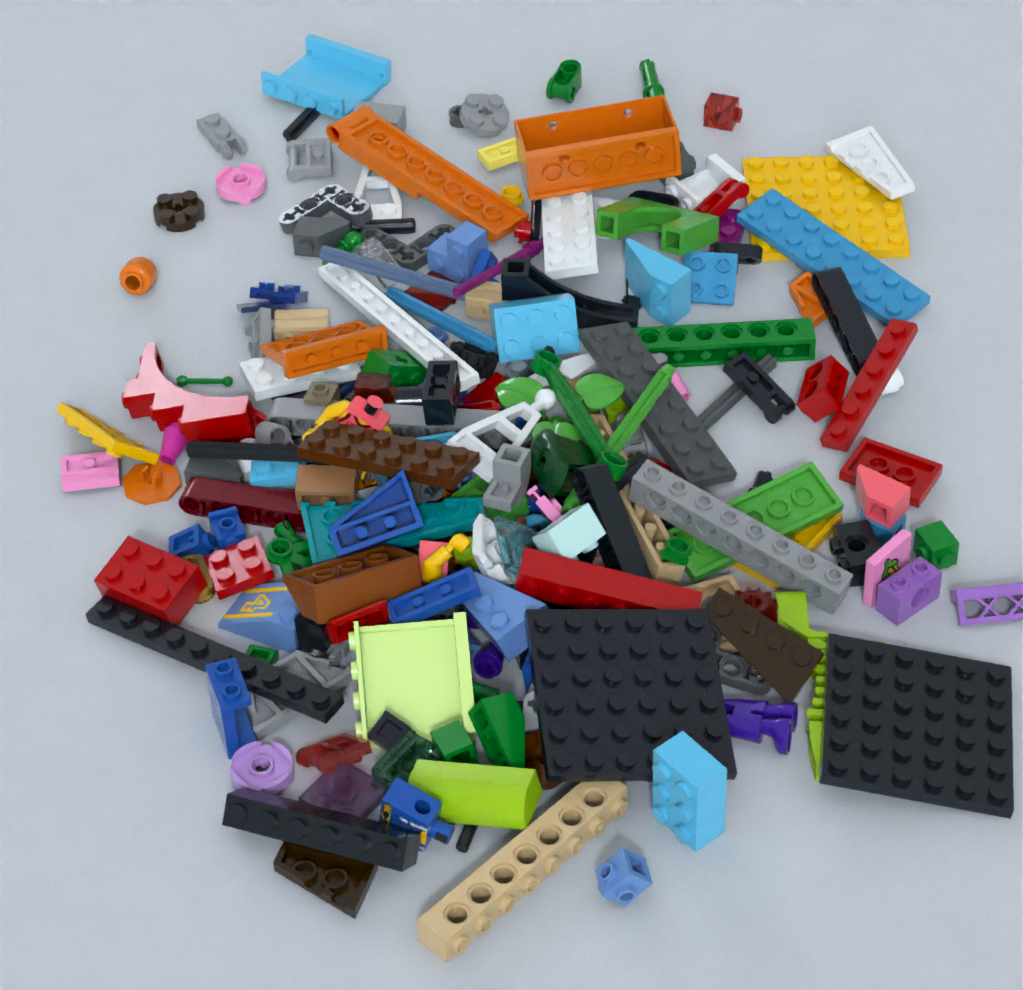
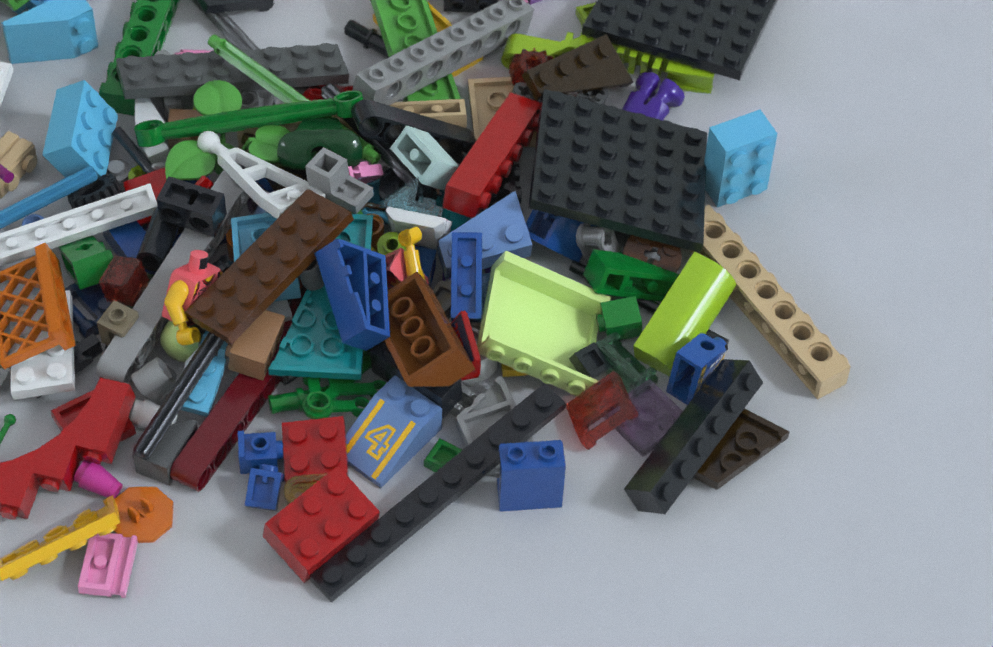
camera: 80 degrees left, 10 degrees up
(254, 754) = (588, 492): lavender plate -> none
(525, 281) = (28, 119): black arch -> none
(623, 877) = (794, 227): medium blue brick -> none
(629, 299) = (45, 66): black piece -> none
(676, 551) = (454, 95): green plate -> none

